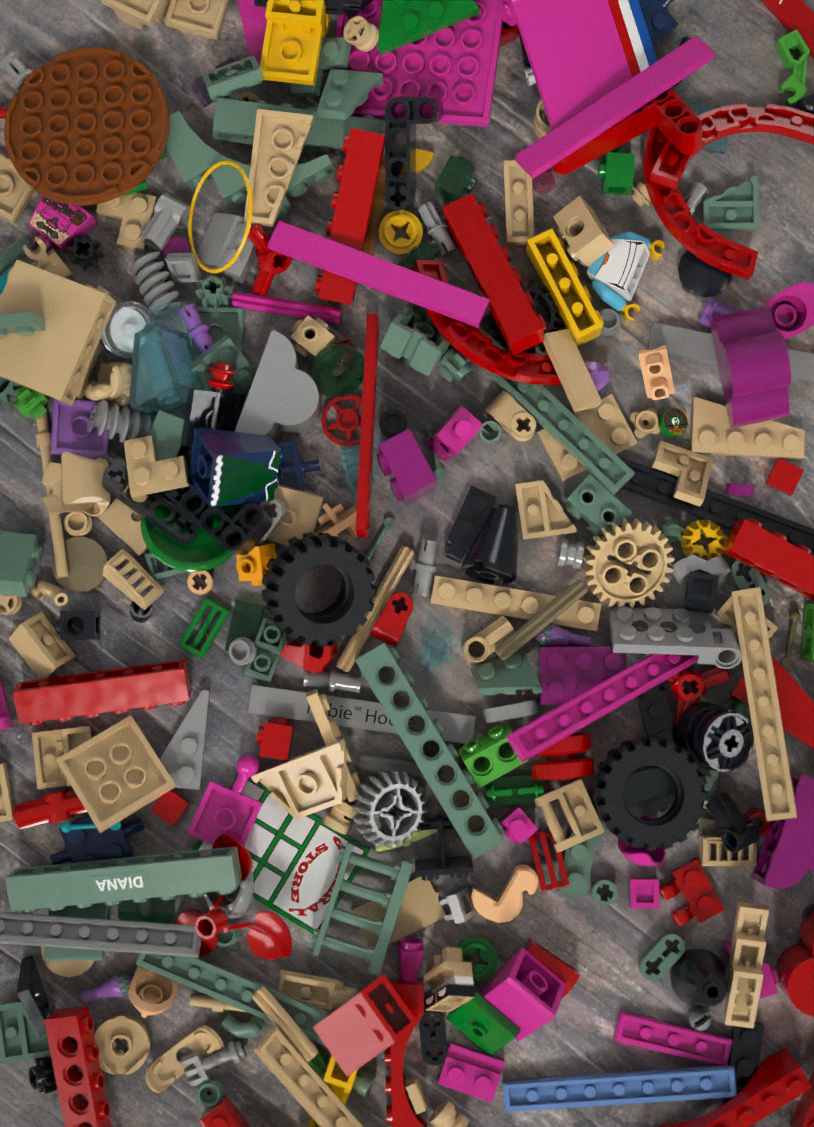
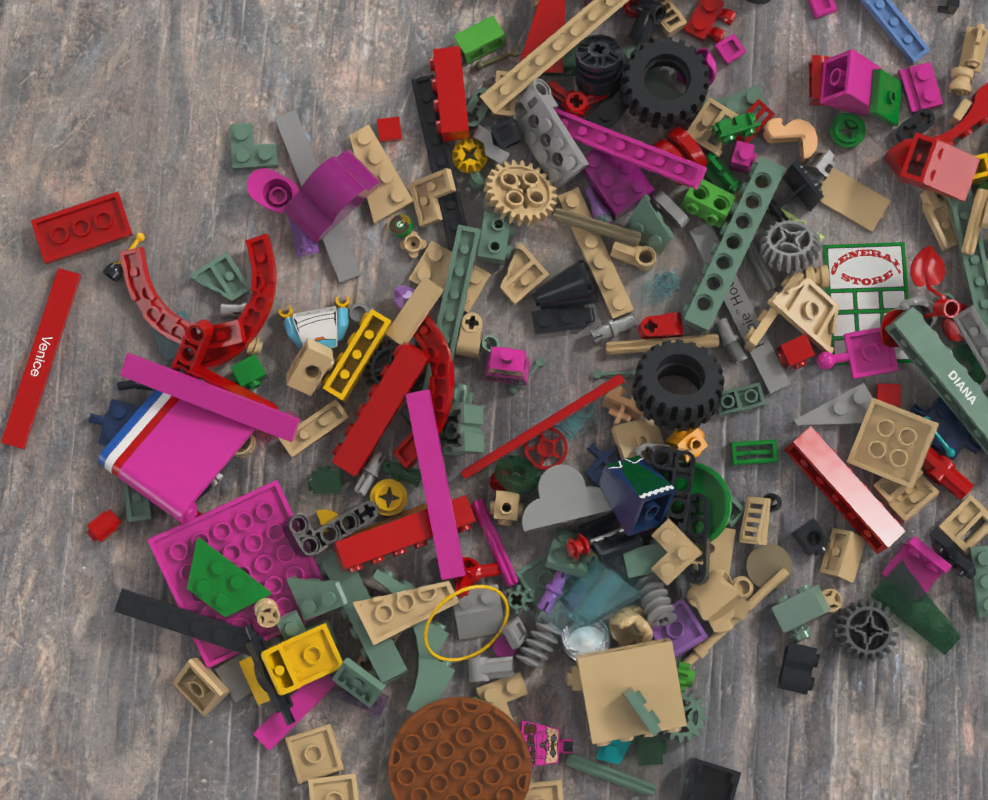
camera: 130 degrees left, 5 degrees down
(47, 261) = (576, 732): tan plate -> none
(54, 592) = (800, 571): tan arm -> none
(79, 246) = (543, 713): black gear -> none
(209, 581) = (729, 481): light nougat bush -> none
(242, 651) = (752, 413): light grey plate -> none
(245, 621) = (732, 427): clear green tile -> none
(309, 656) = (729, 365): red hand -> none
(363, 1082) = (975, 149): sand green hinge -> none
(381, 928) = (870, 201): sand green fence -> none
(392, 423) = (527, 415): black plate -> none
(406, 466) = (554, 381): magenta brick -> none
(410, 957) = (875, 172): dark pink cone -> none
(449, 981) = (873, 135): tan hips -> none
(554, 824) = (743, 126): none -> green hinge
(570, 554) = (538, 237): light grey wheel -> none
(597, 897) = (743, 82): sand green bush -> none
(656, 373) = (376, 255): light nougat hips -> none
(666, 961) = (762, 8): sand green beam -> none
(700, 277) = (288, 270): black dish -> none
(739, 489) = (418, 152): magenta tile -> none
(796, 82) = (101, 291): bright green piece -> none

